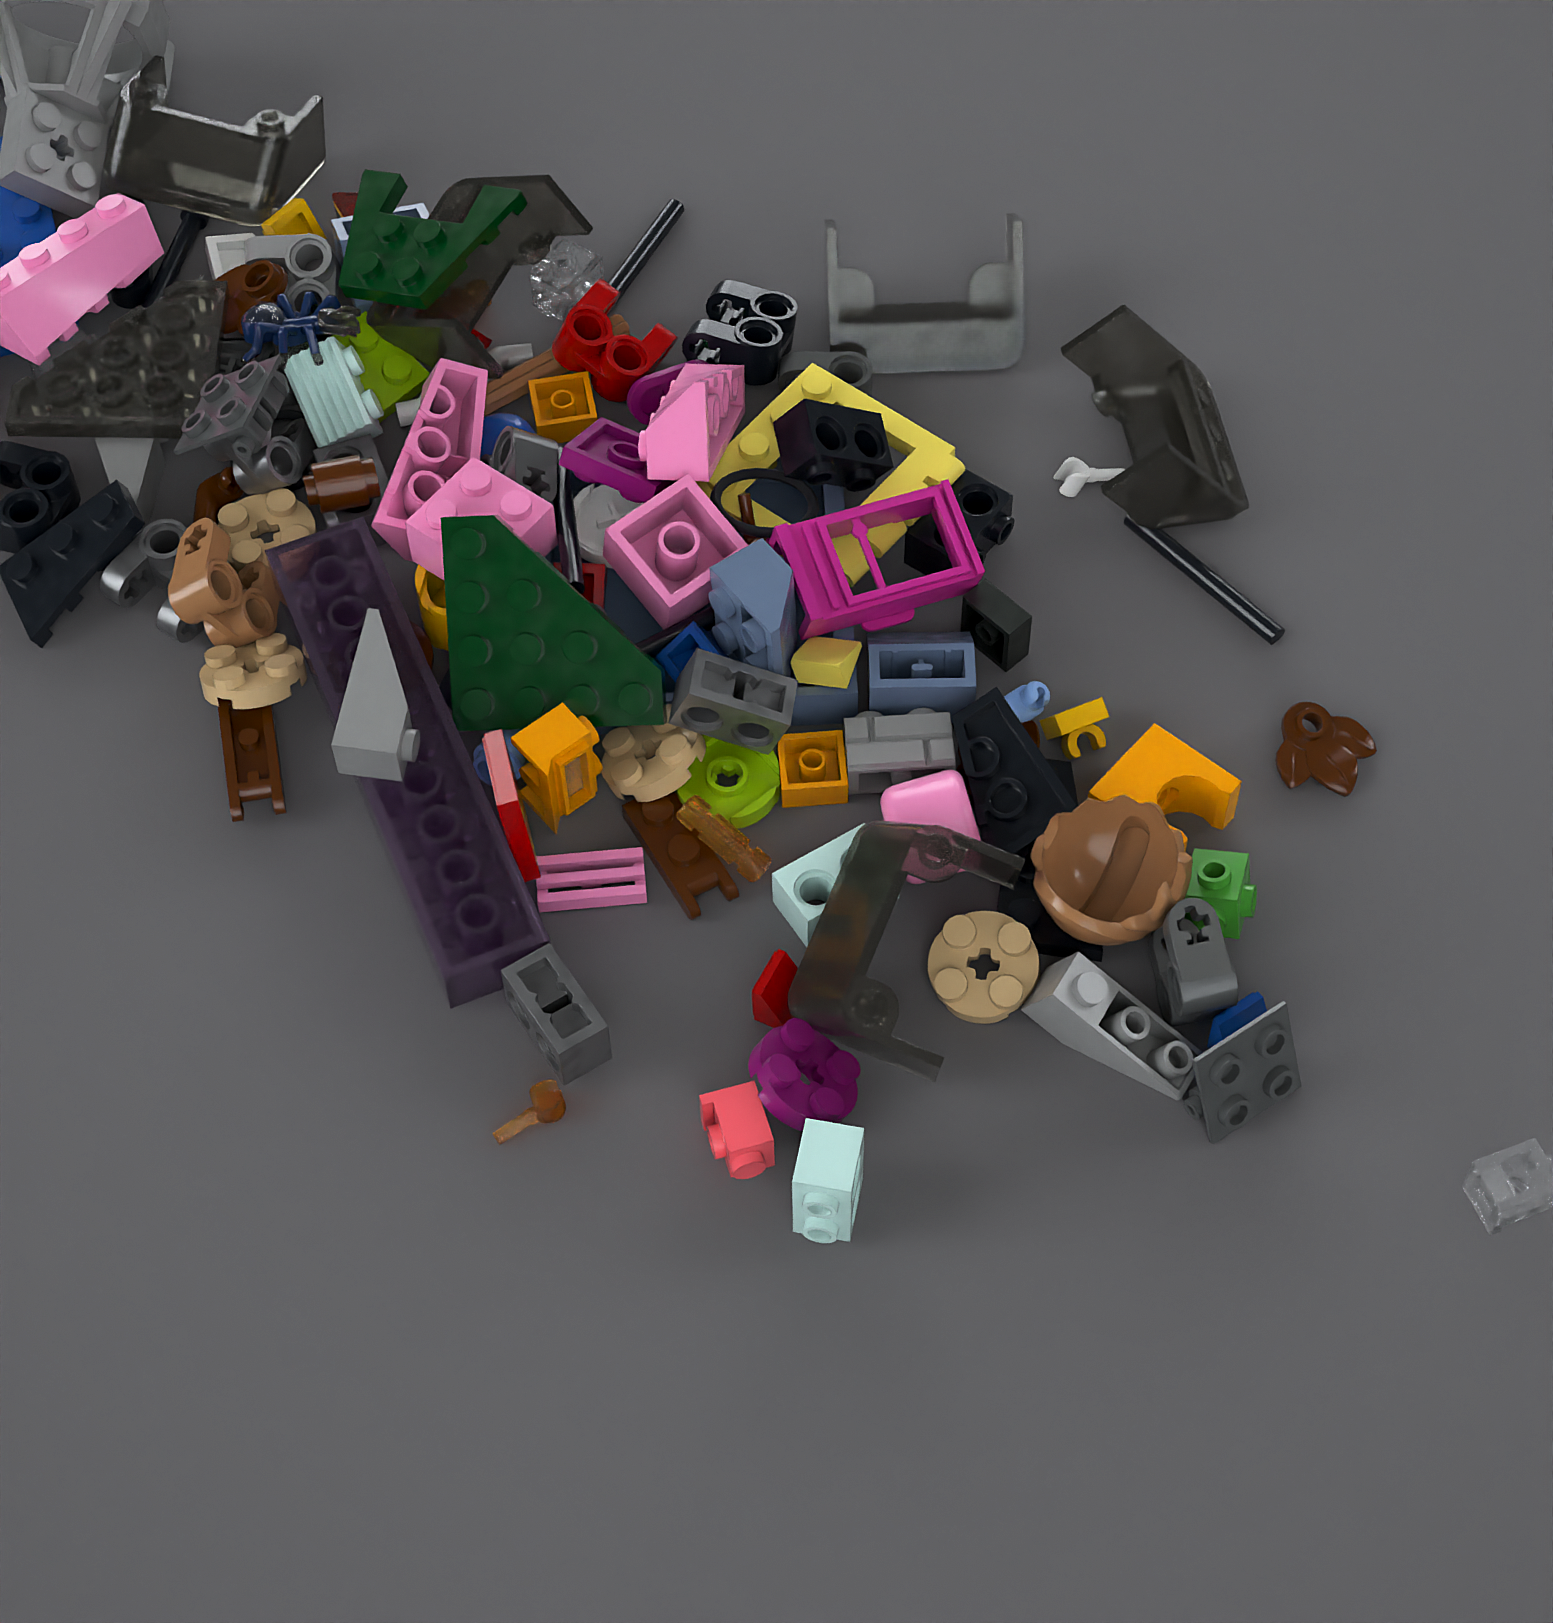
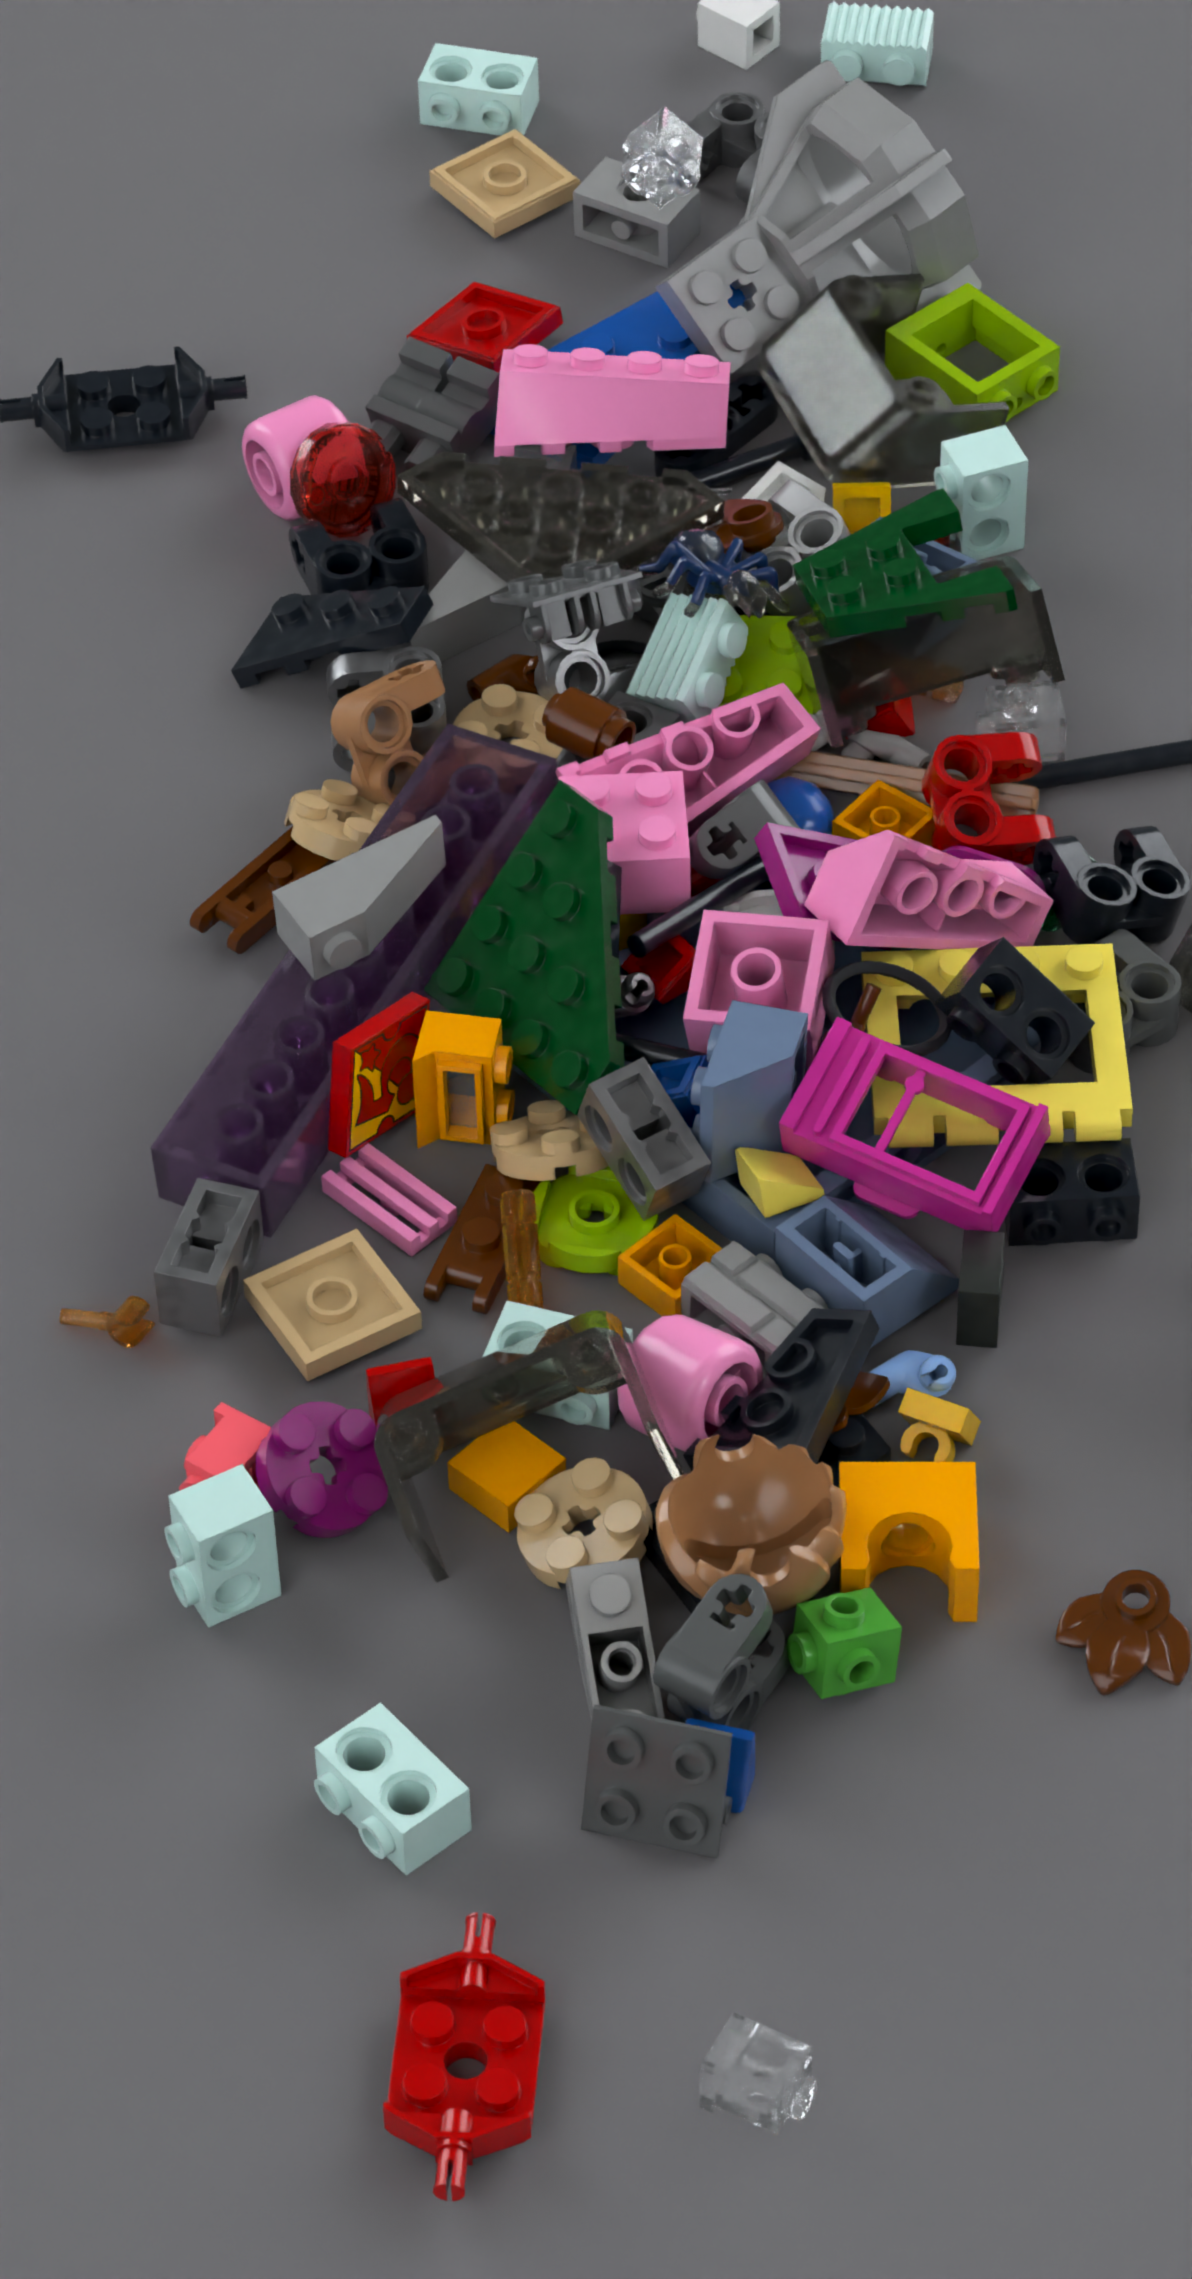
camera: 50 degrees right, 10 degrees down
(232, 64) = (925, 338): none -> lime window
(358, 143) = (988, 485): none -> light aqua brick
(655, 974) = (332, 1304): none -> tan plate
(904, 968) = (501, 1470): none -> light orange piece
(1103, 1212) = (379, 1774): none -> light aqua brick
(1337, 1300) = (454, 2011): none -> red plate

